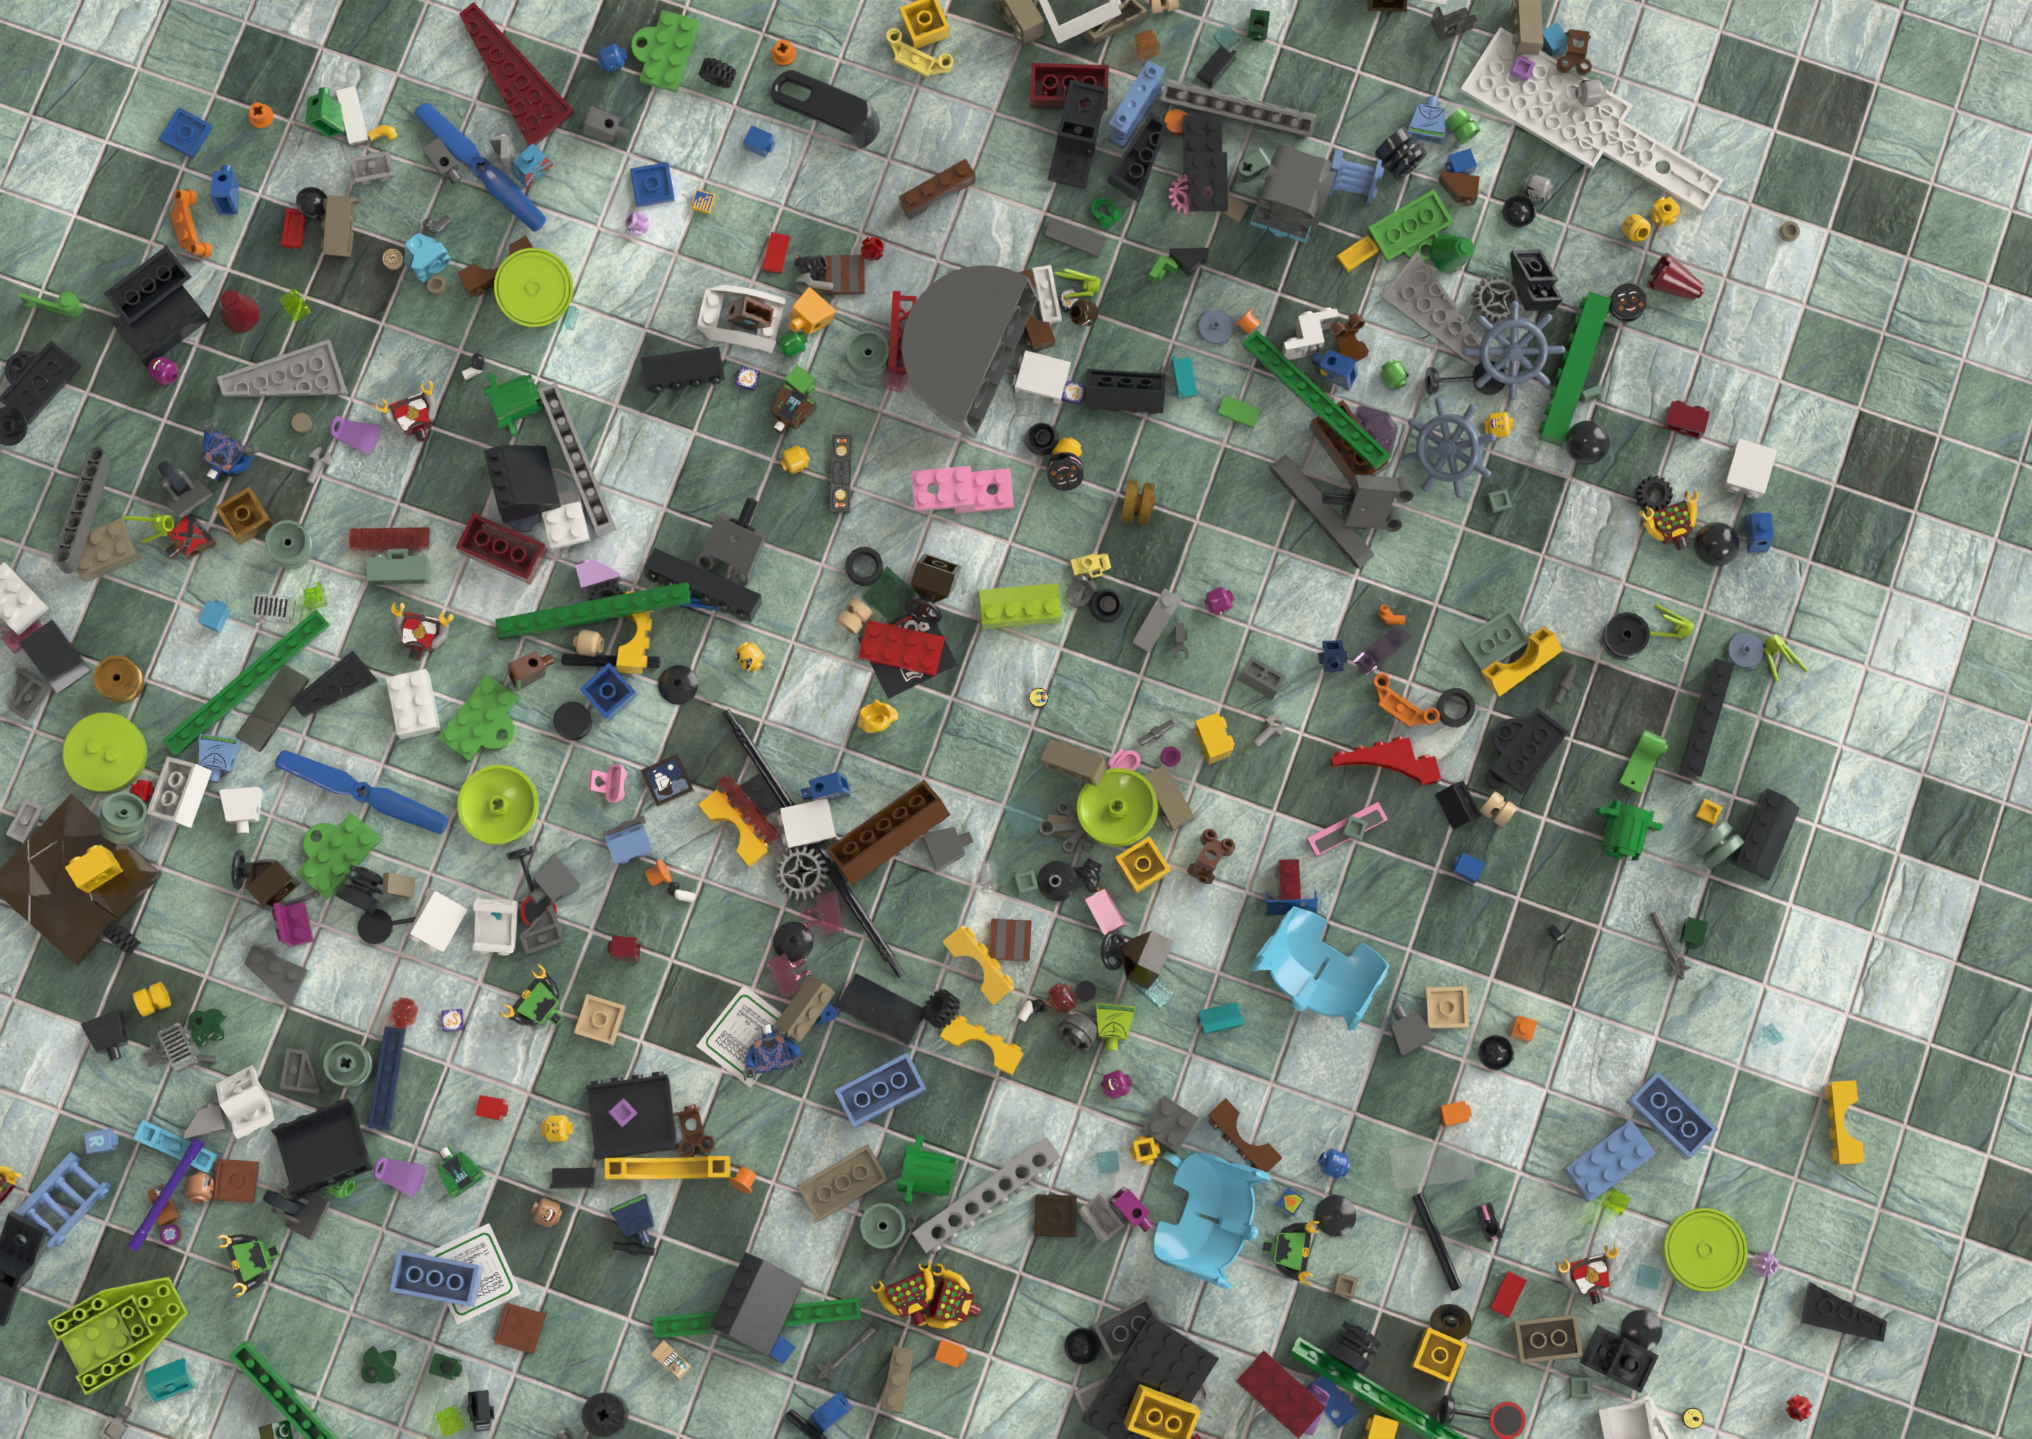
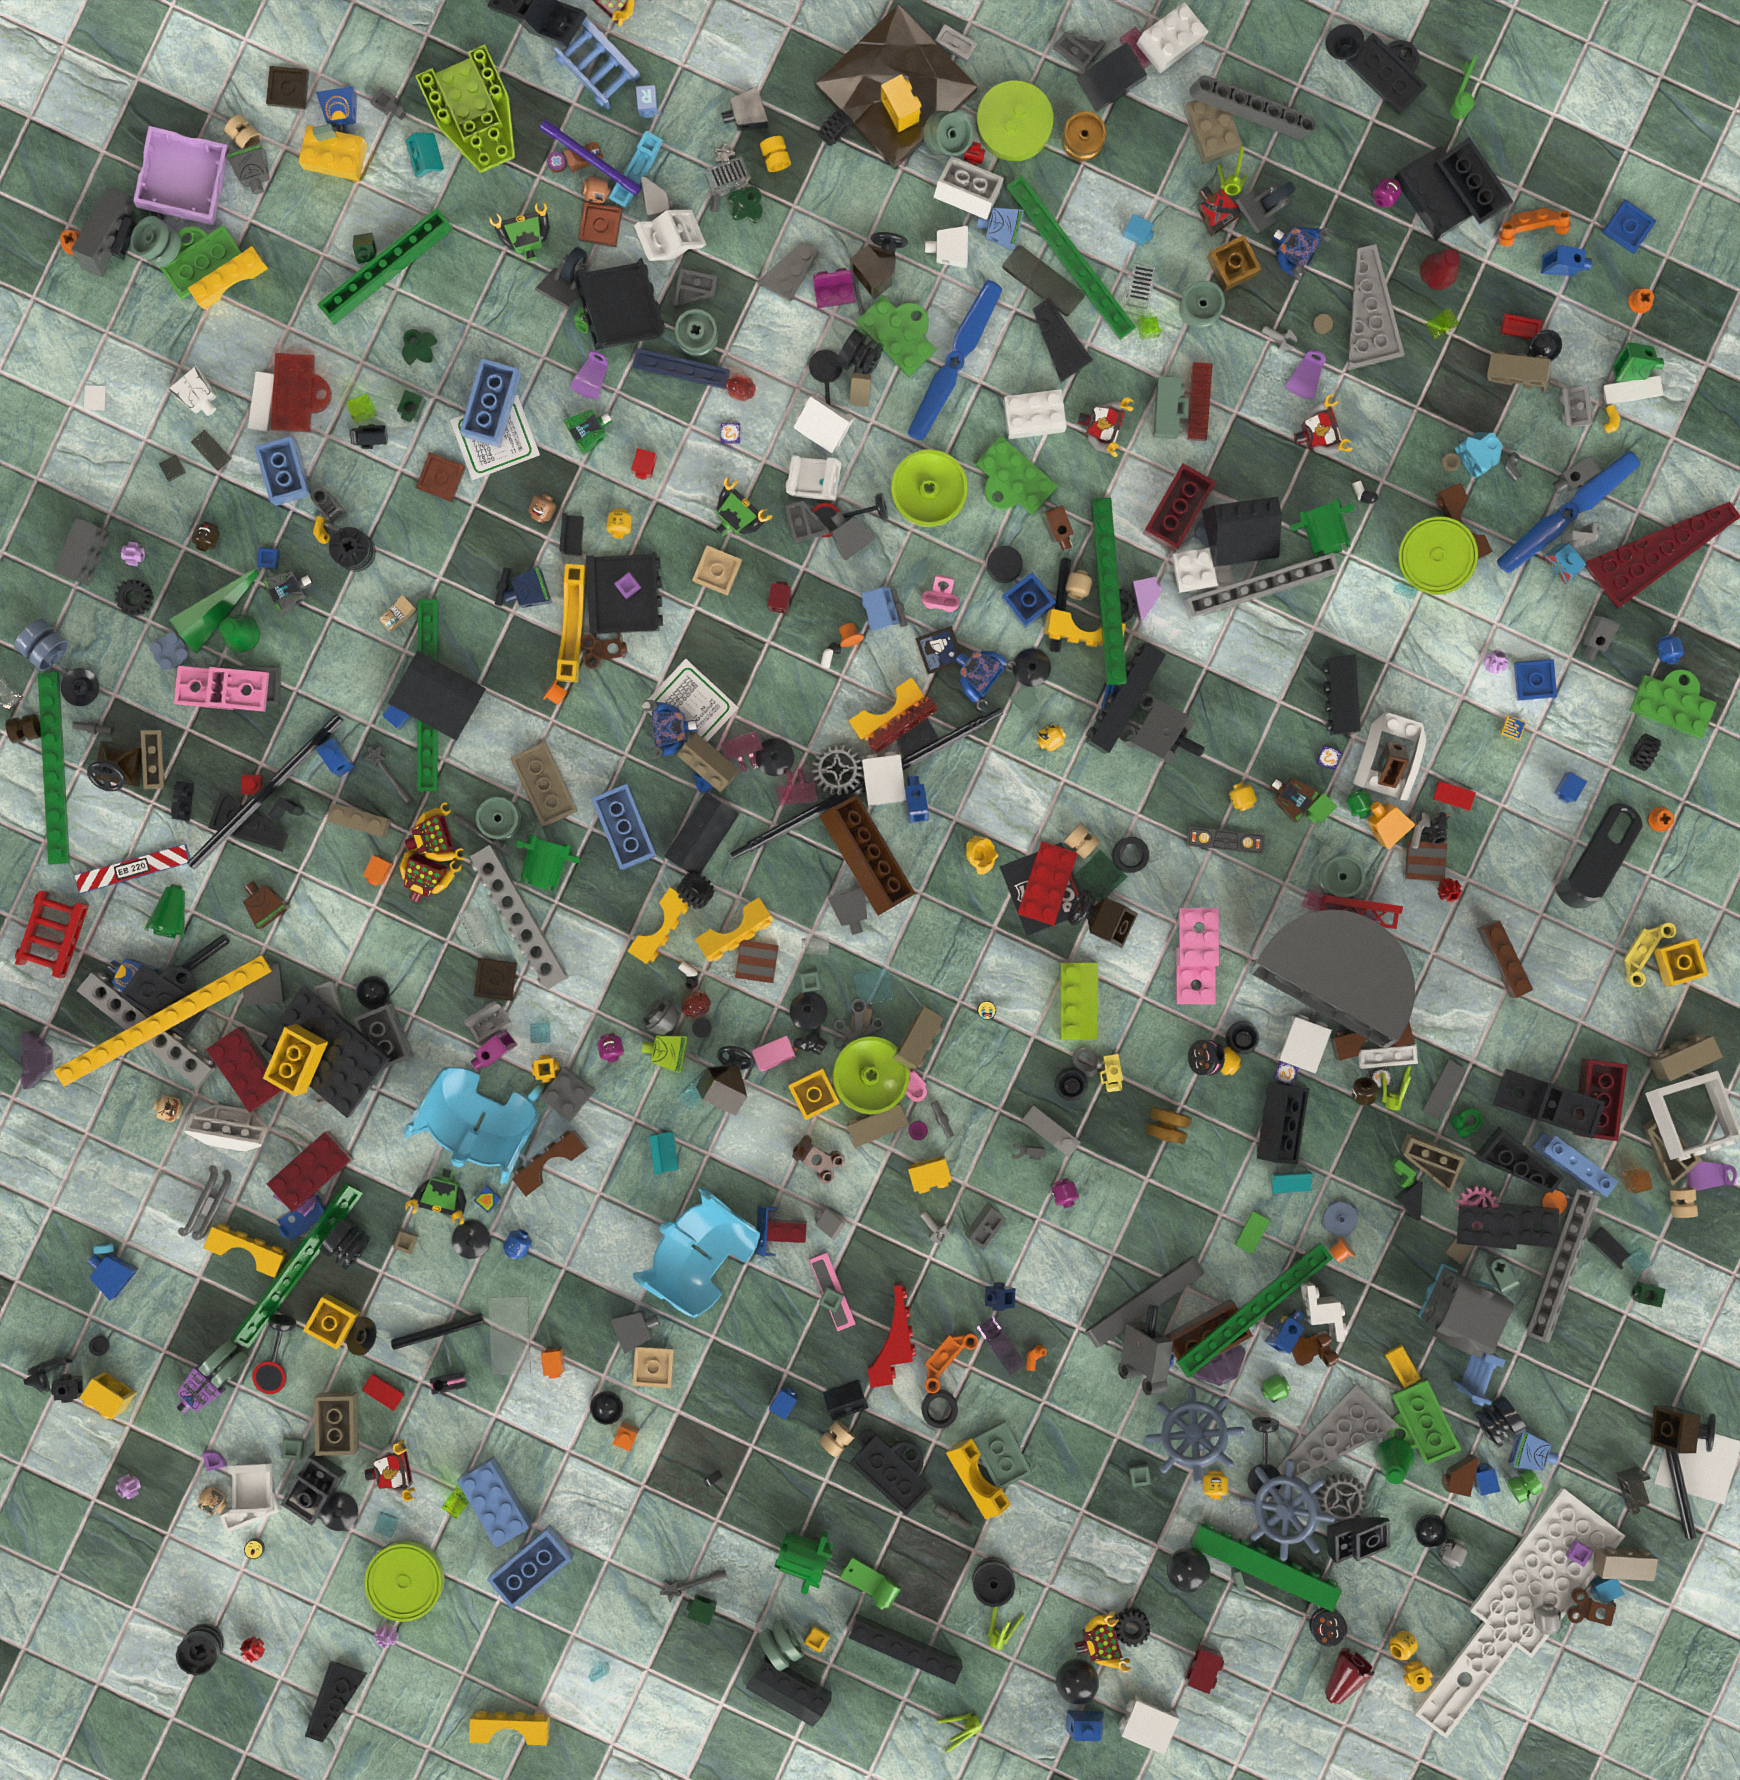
camera: 95 degrees right, 10 degrees up
(393, 259) = (1481, 421): tan tile -> none
(688, 733) = (980, 673): none -> blue torso
(1146, 238) = (1434, 1159): none -> dark tan wedge
(1275, 836) = (830, 1222): none -> light grey slope
(1745, 650) = (970, 1695): sand blue piece -> none

